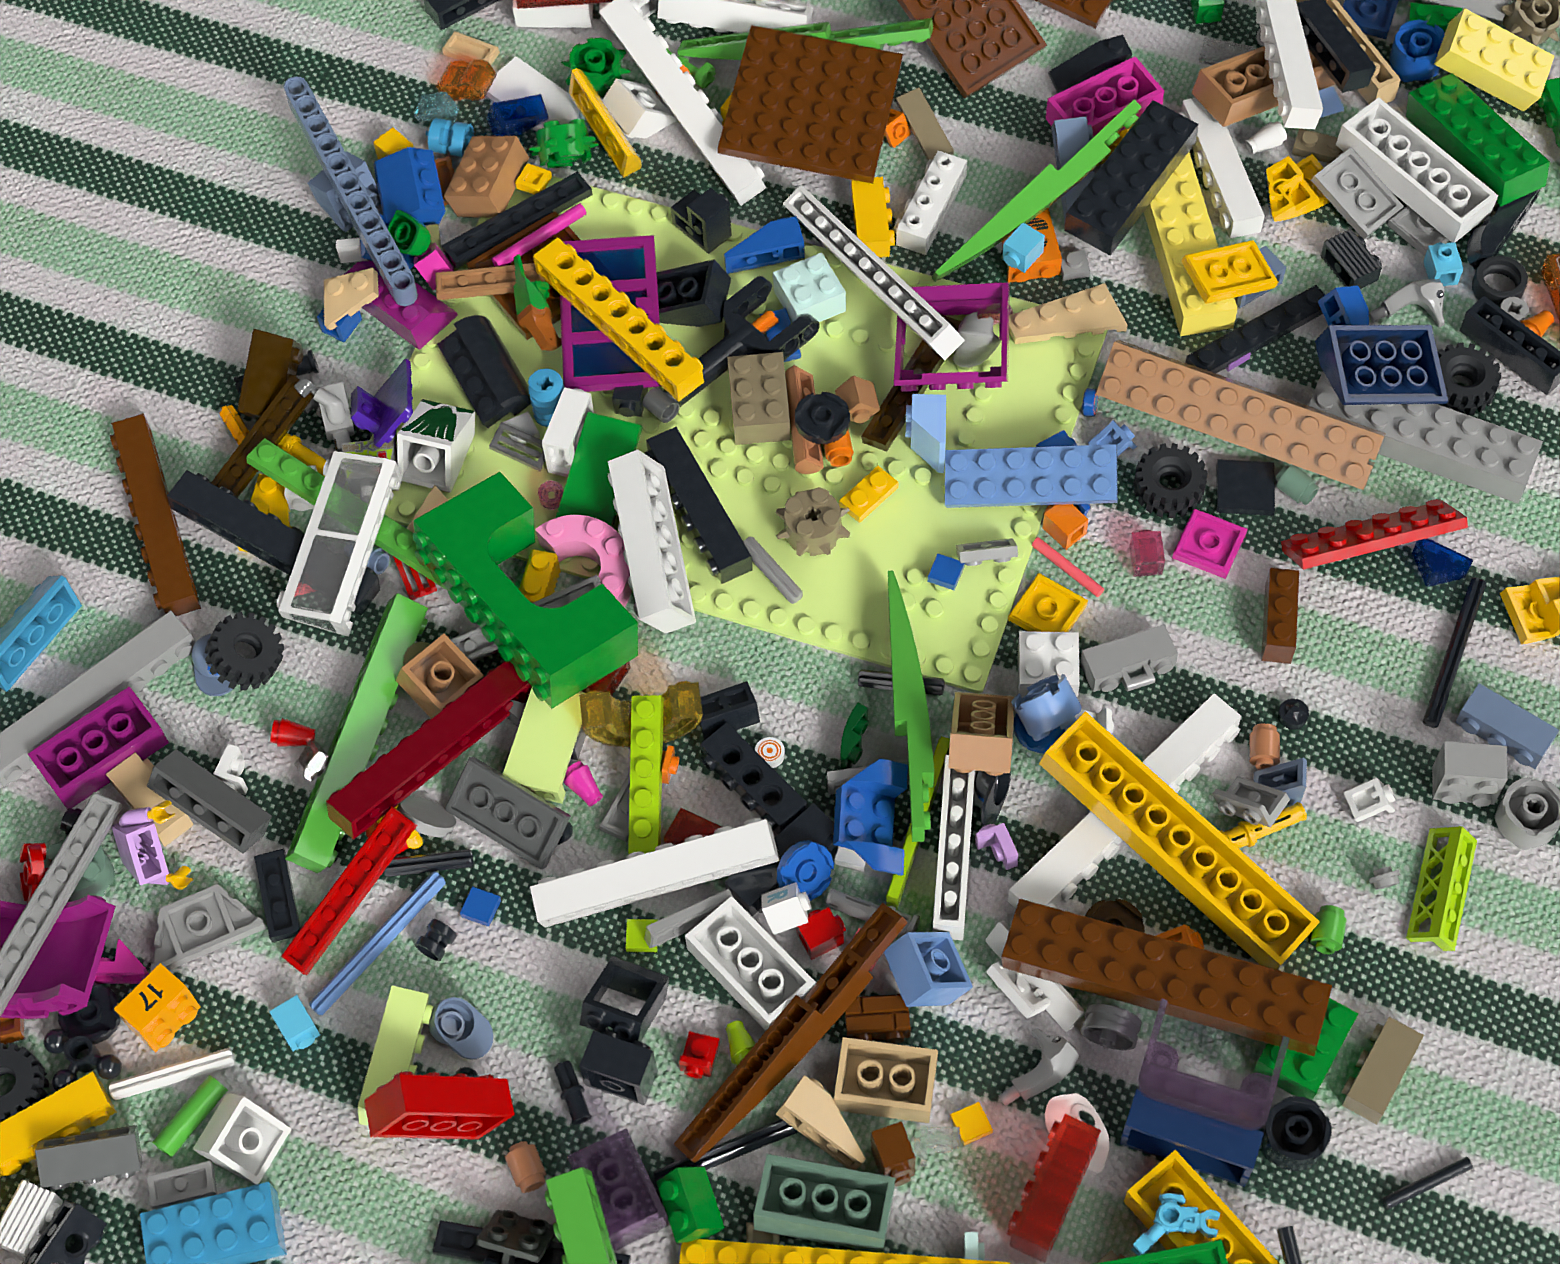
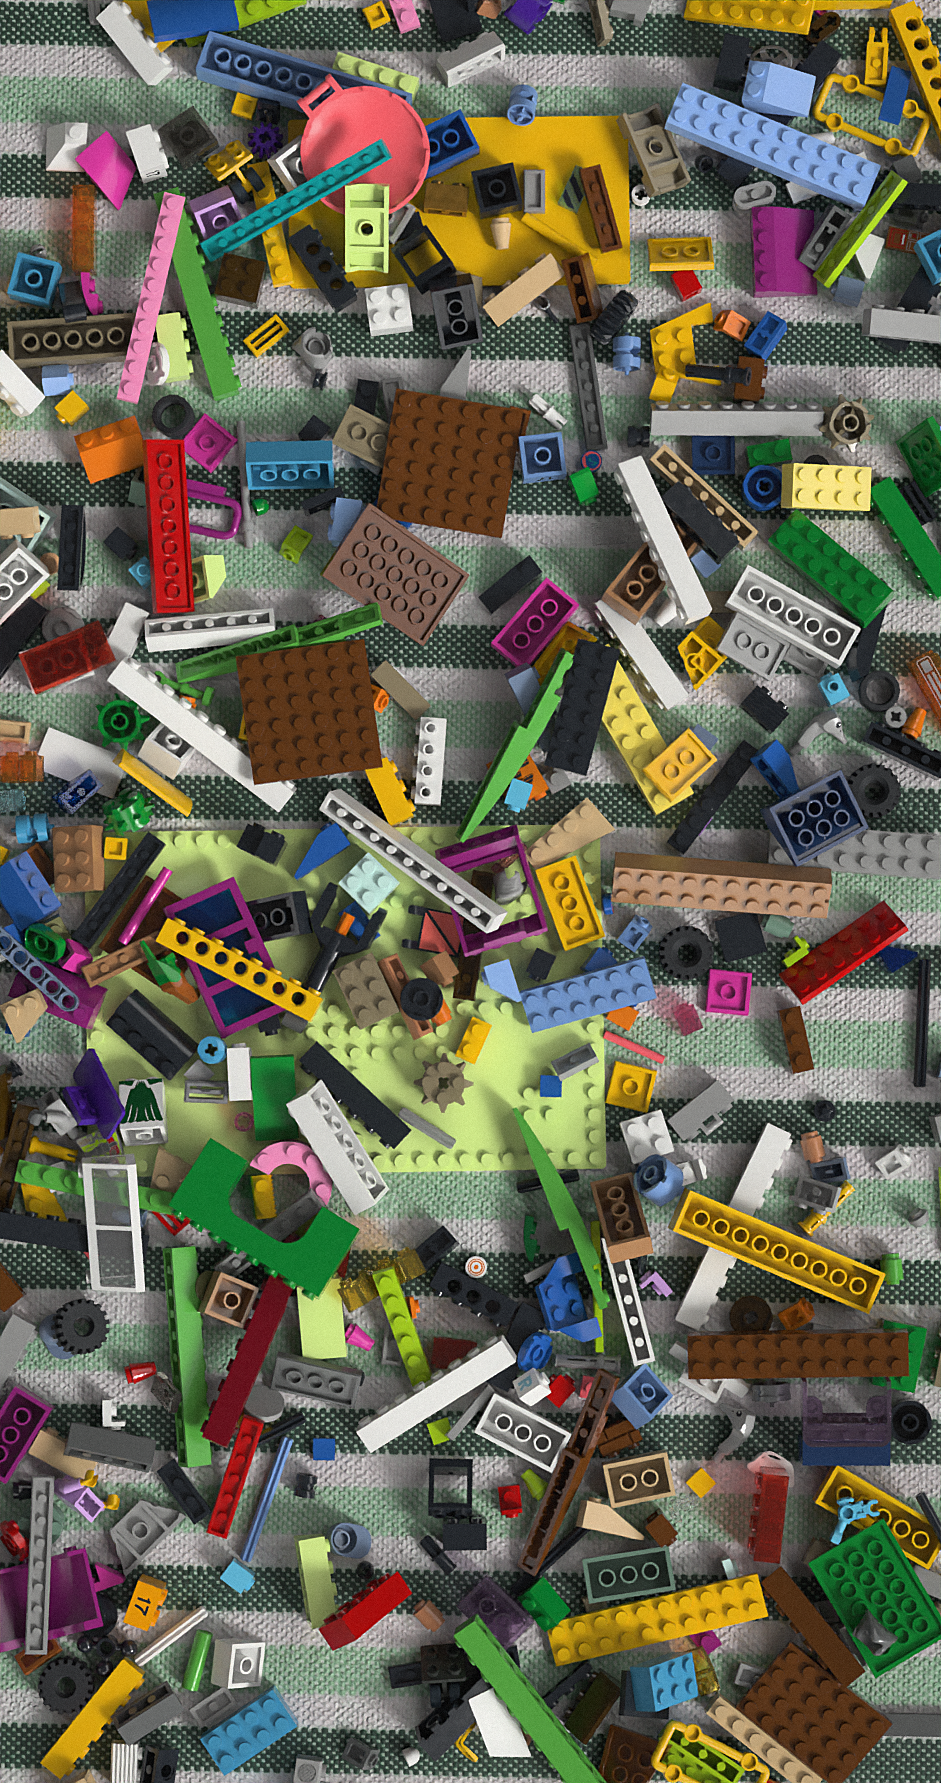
camera: 25 degrees left, 25 degrees up
(868, 362) = (436, 932): none -> coral flag
(984, 431) = (540, 965): none -> black brick
(1044, 383) = (570, 903): none -> yellow plate
(1311, 521) = (793, 956): none -> lime bracket

